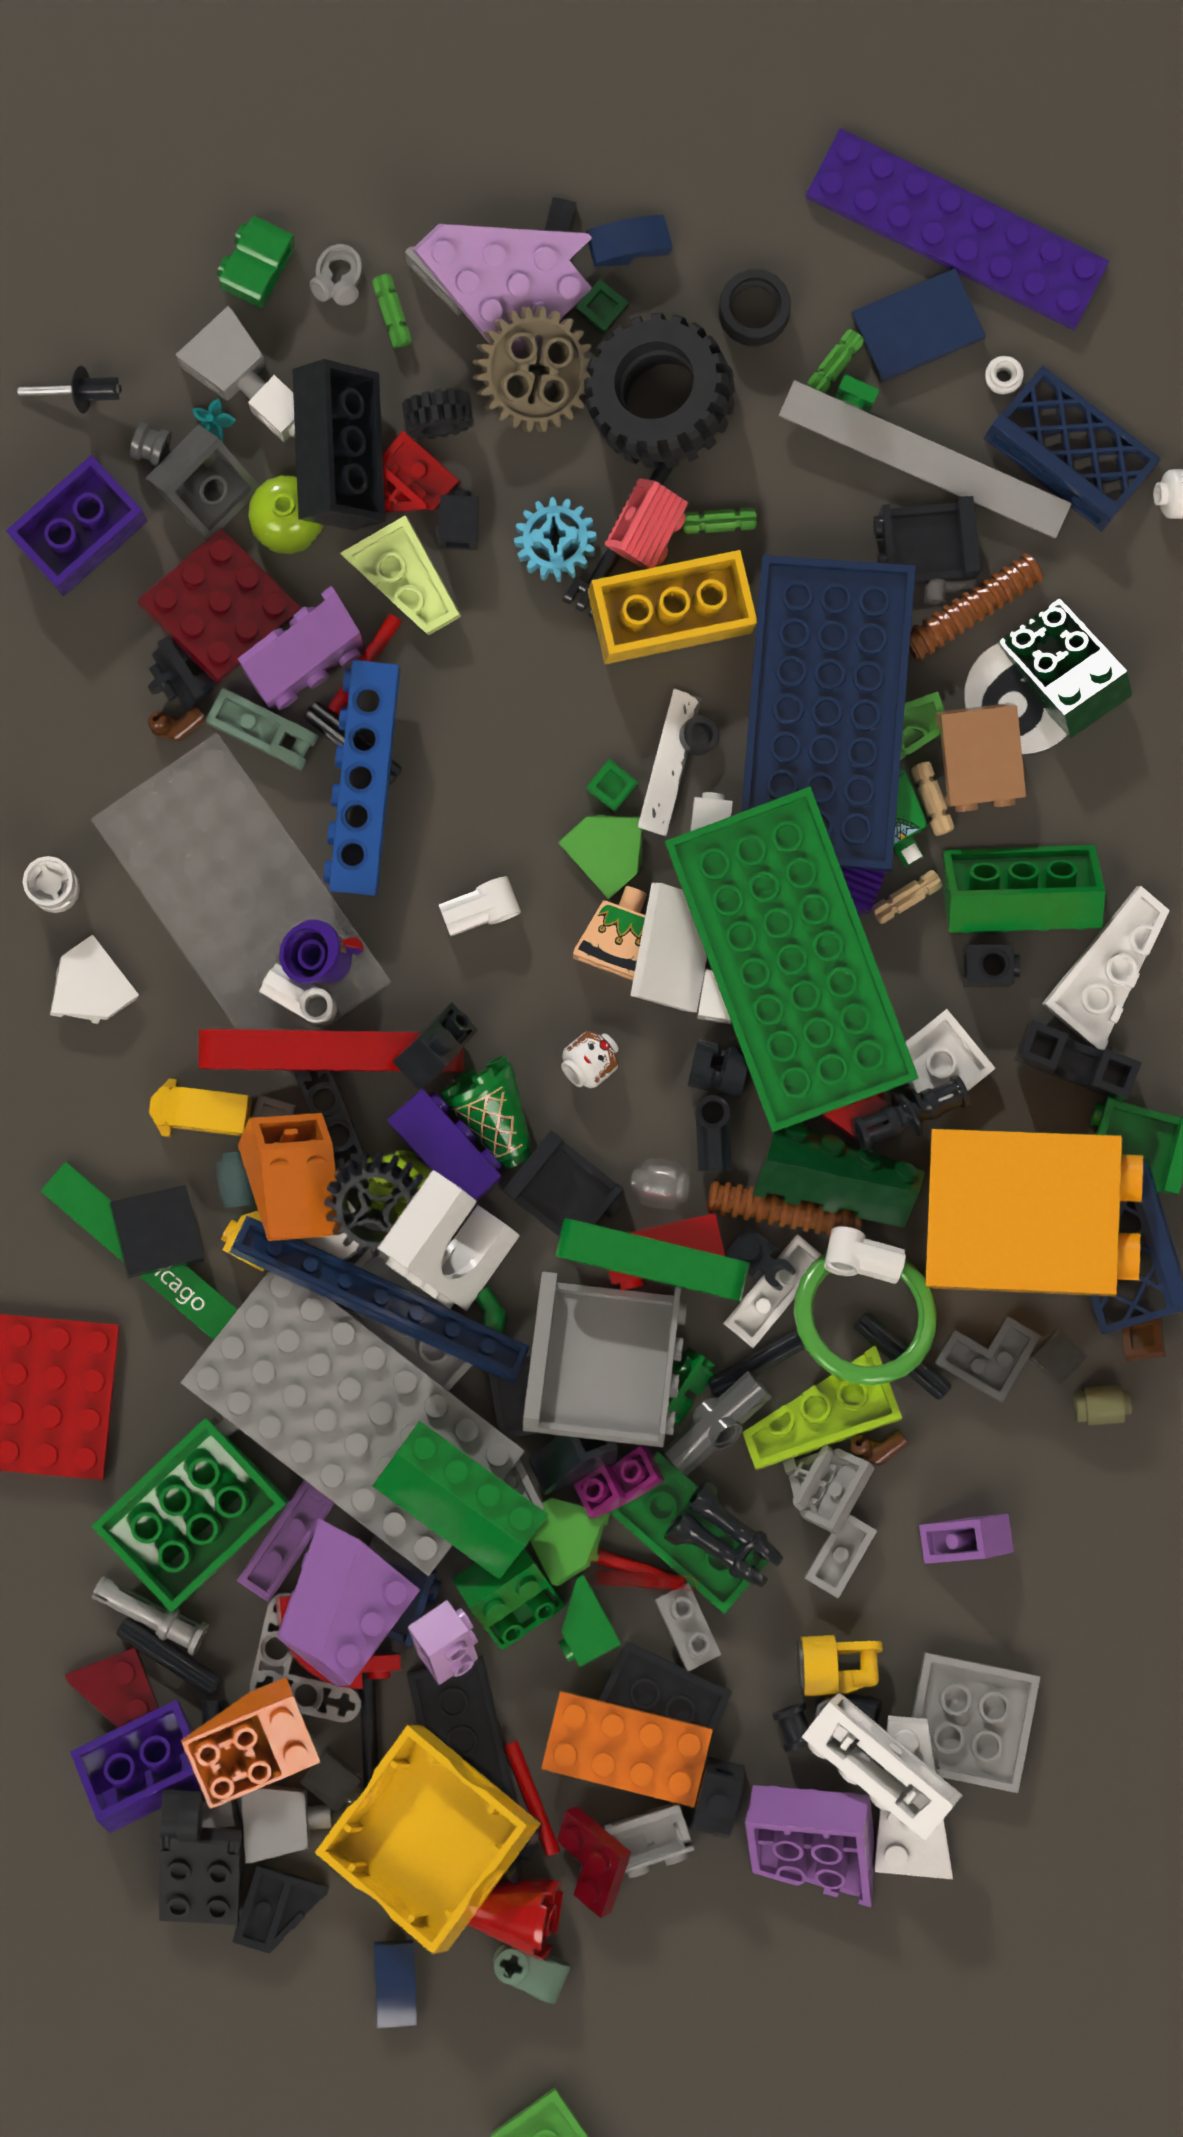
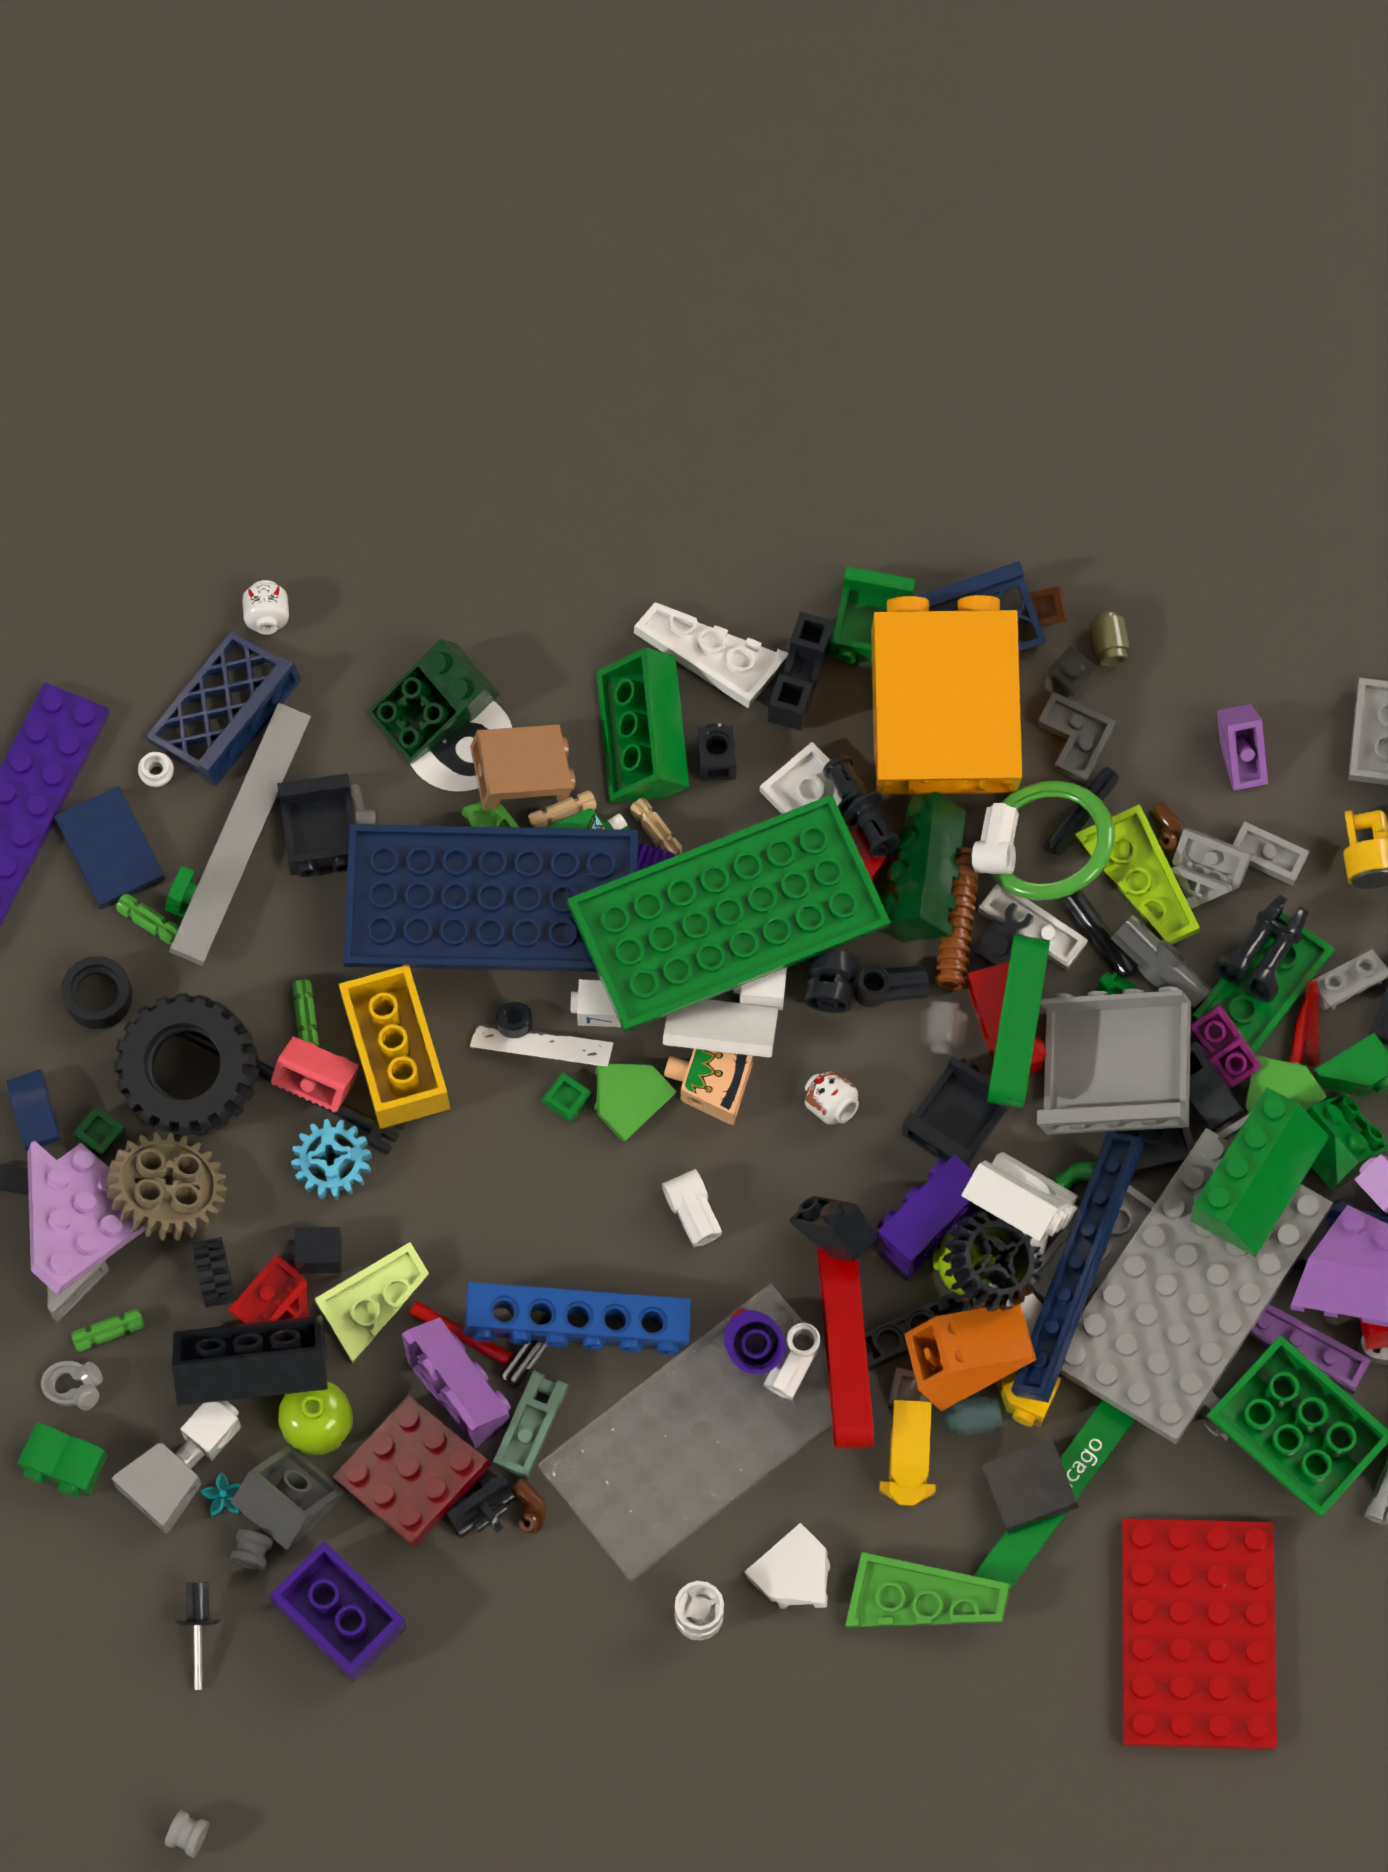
camera: 90 degrees left, 15 degrees down
(54, 1103) = (915, 1595): none -> bright green wing
(492, 1110) = (884, 1178): green cone -> none
(974, 606) = (375, 777): dark orange piece -> none

